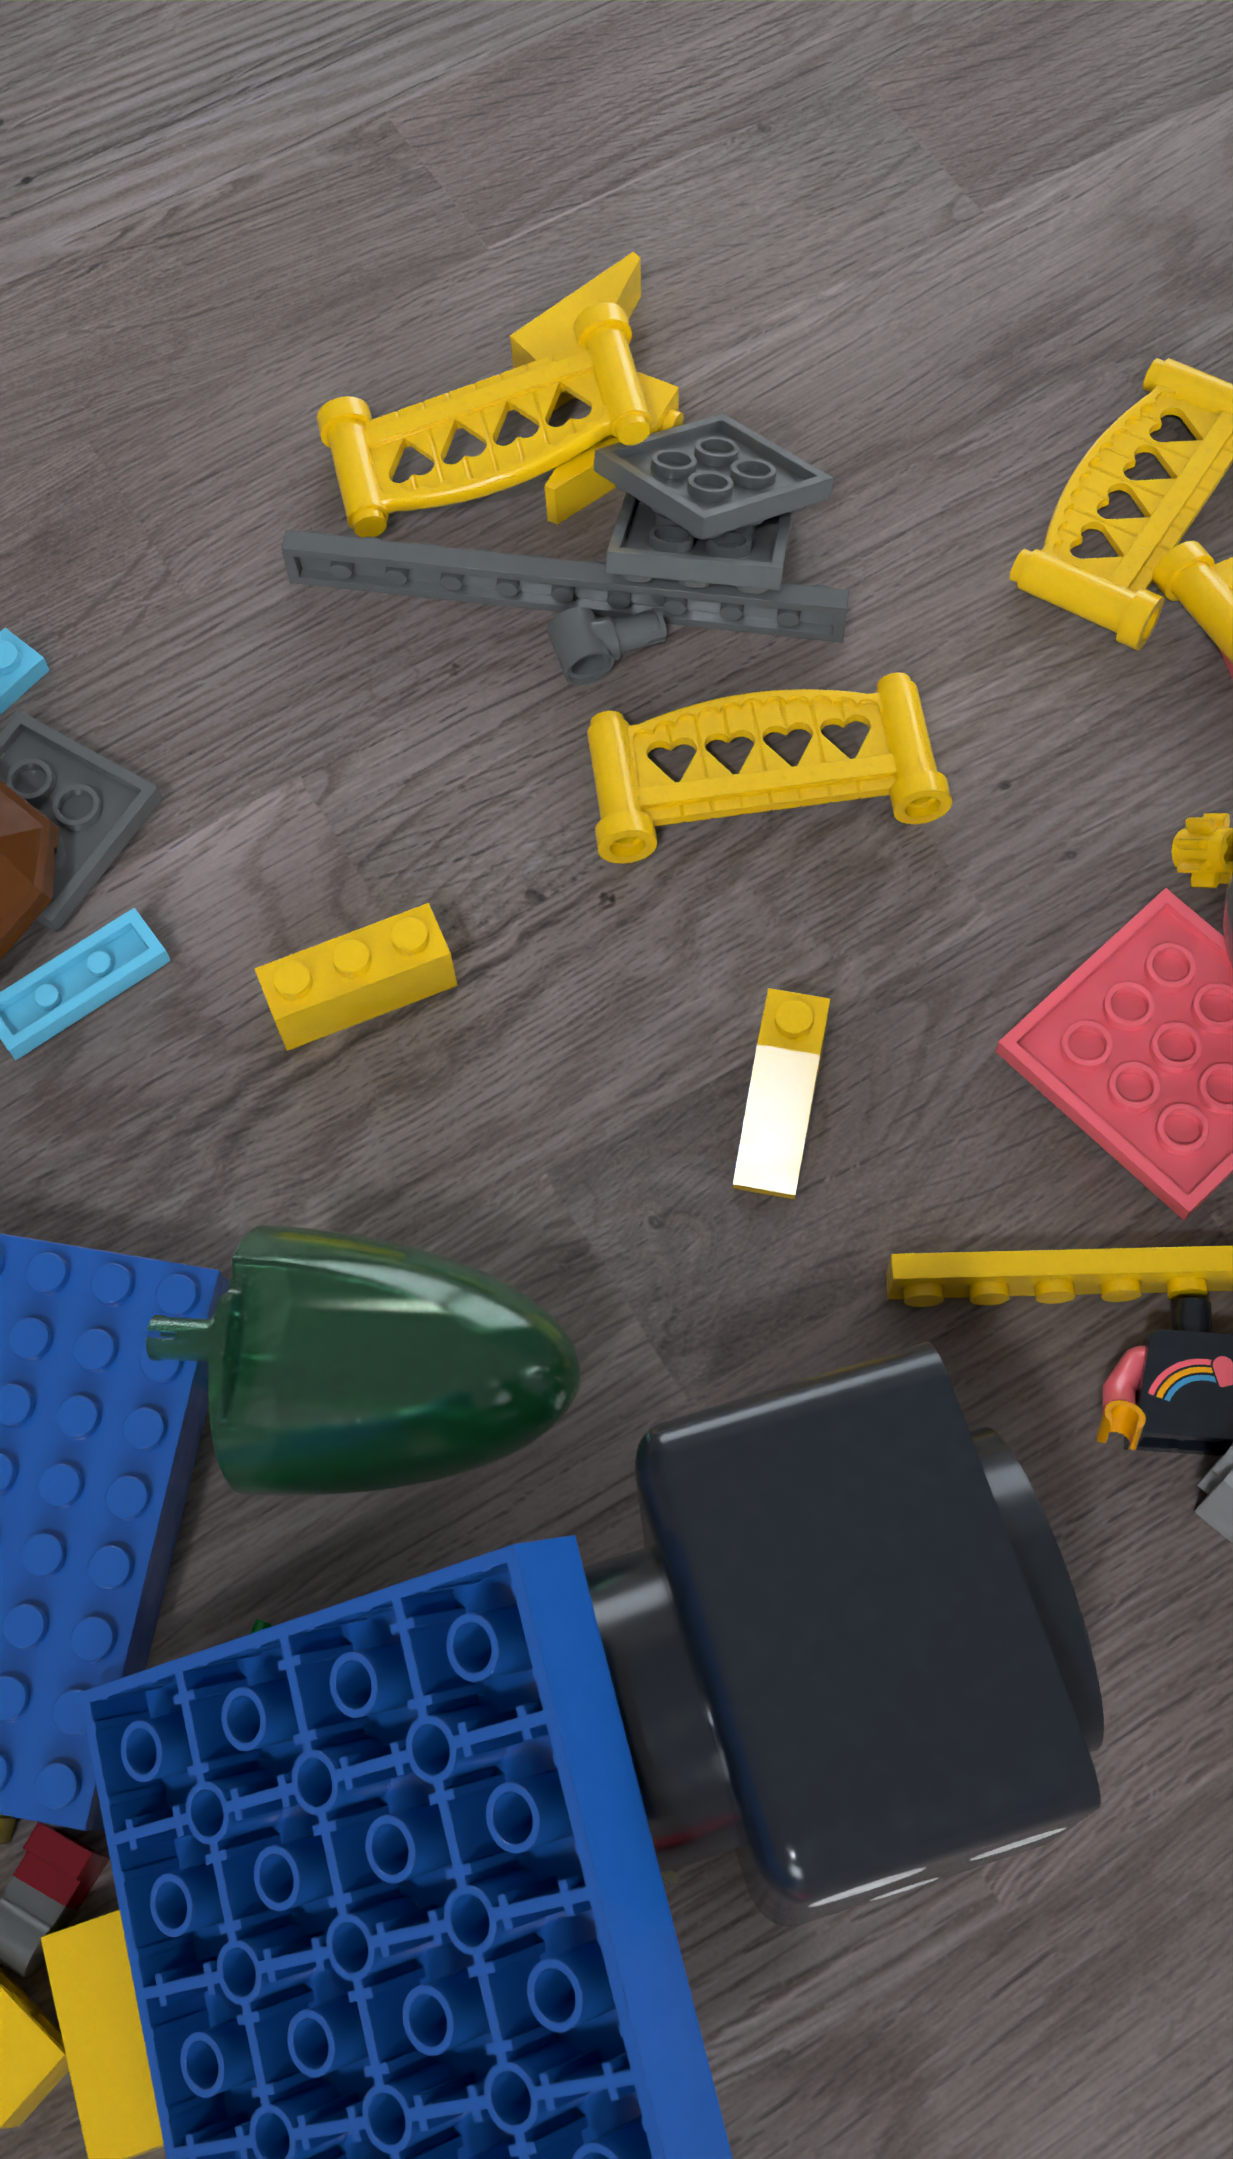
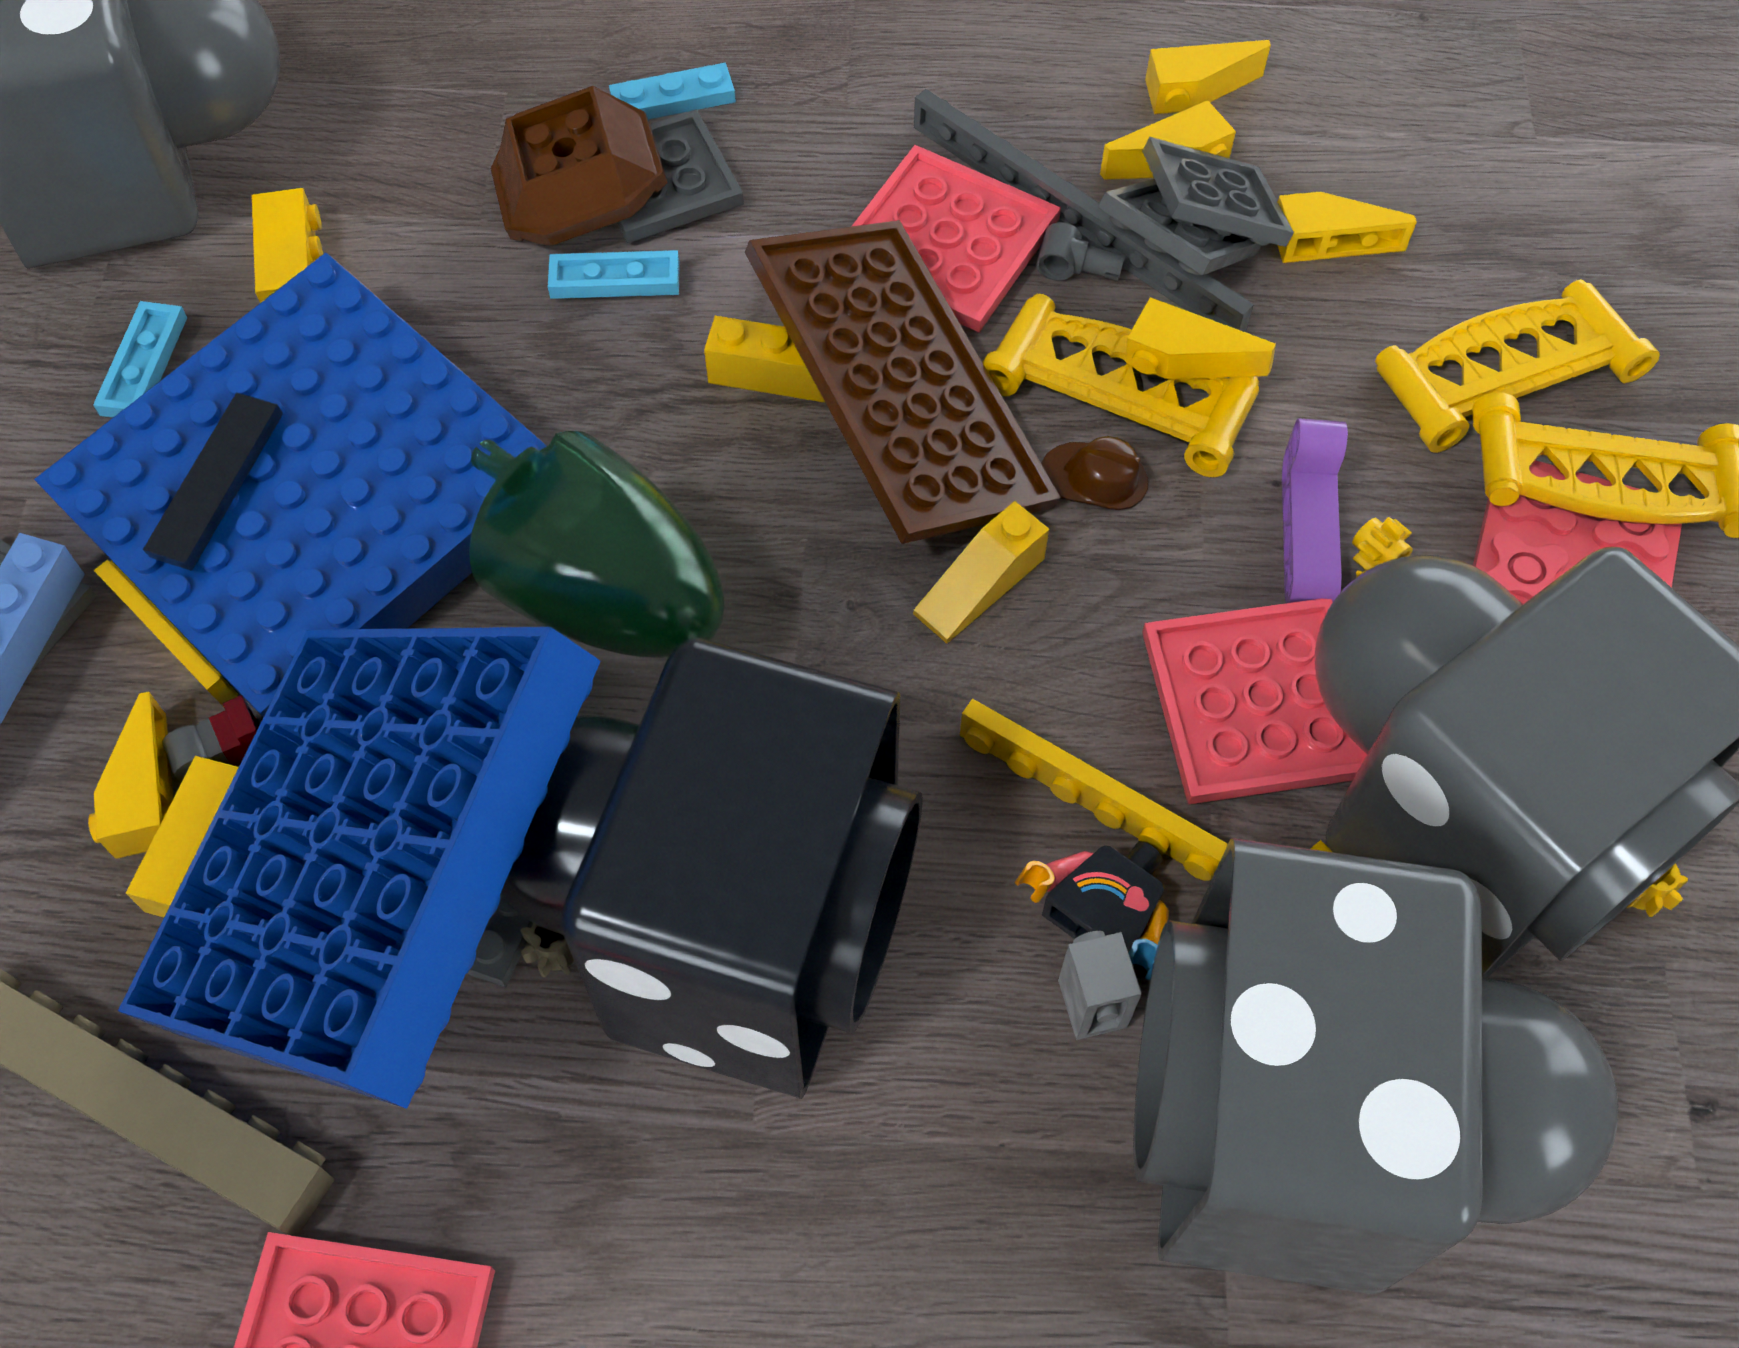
camera: 30 degrees right, 5 degrees down
(435, 703) = (965, 228): none -> coral piece
(528, 915) = (900, 378): none -> reddish brown plate
(595, 372) = (1183, 93): yellow piece -> none
(808, 893) = (1097, 473): none -> reddish brown piece
(814, 683) = (1188, 346): none -> yellow slope
(866, 436) = (1341, 227): none -> yellow slope
(1076, 802) = (1312, 509): none -> medium lavender beam
(1174, 794) = (1381, 542): none -> yellow gear

